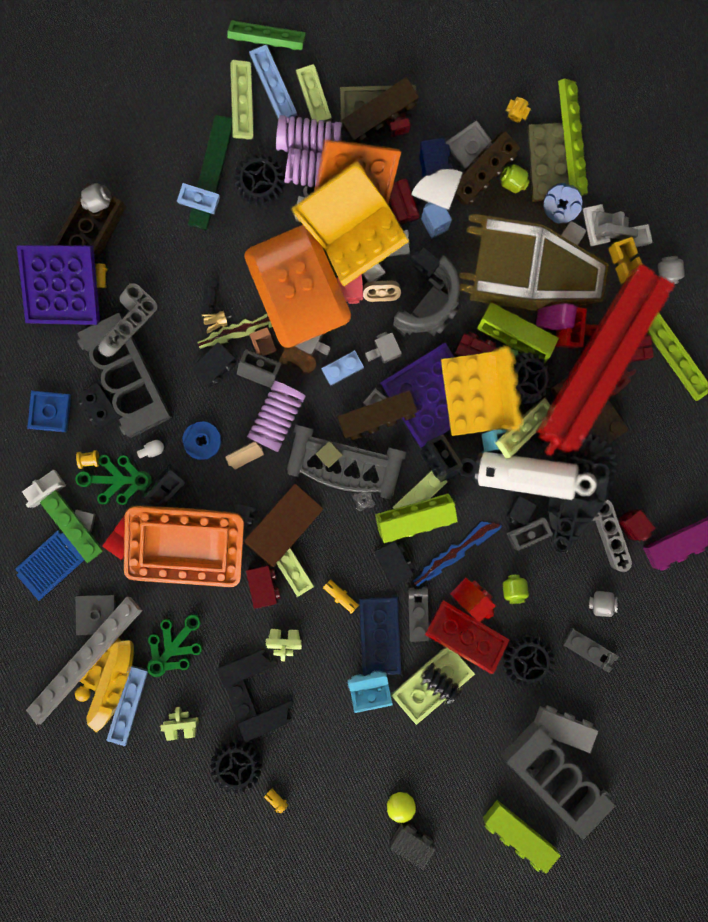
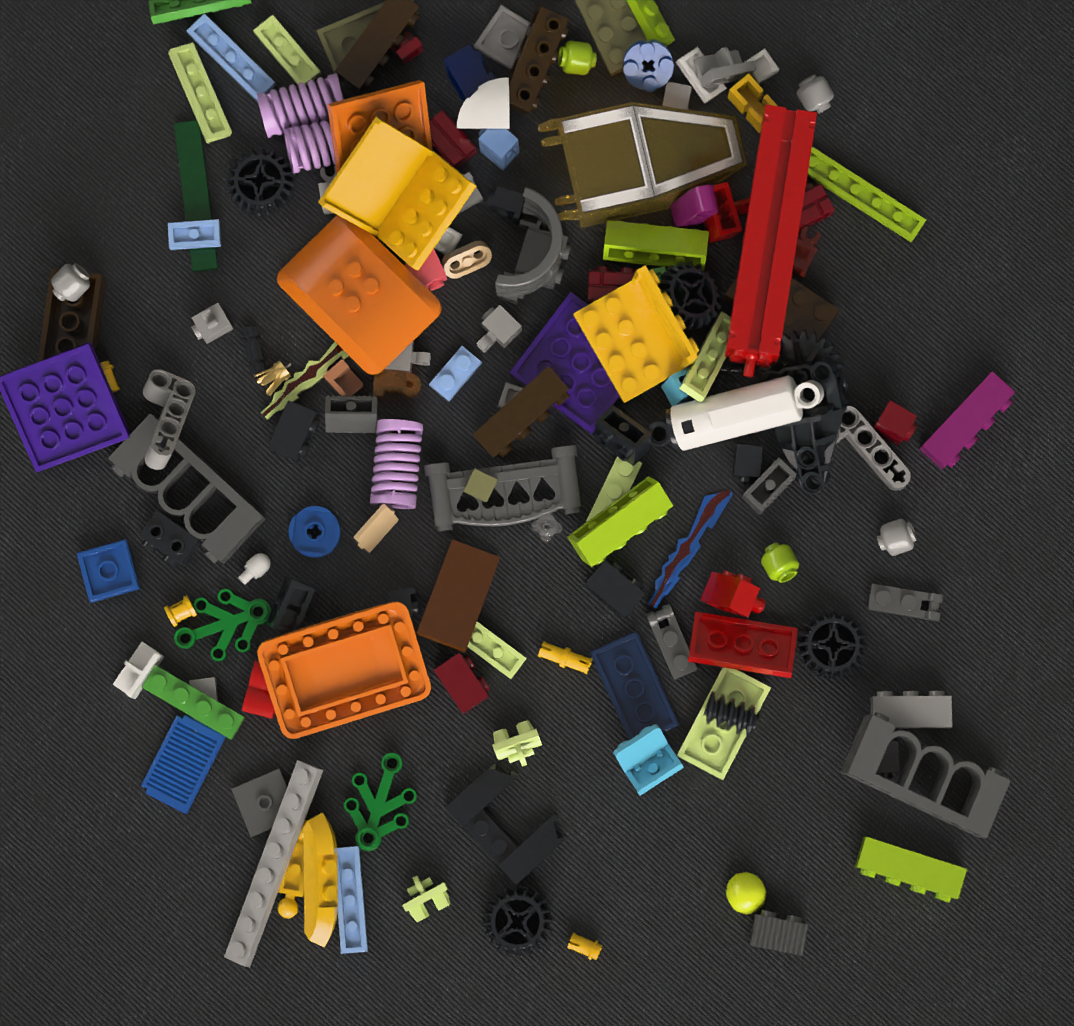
camera: 10 degrees left, 5 degrees down
(186, 266) = (211, 323): none -> light grey brick

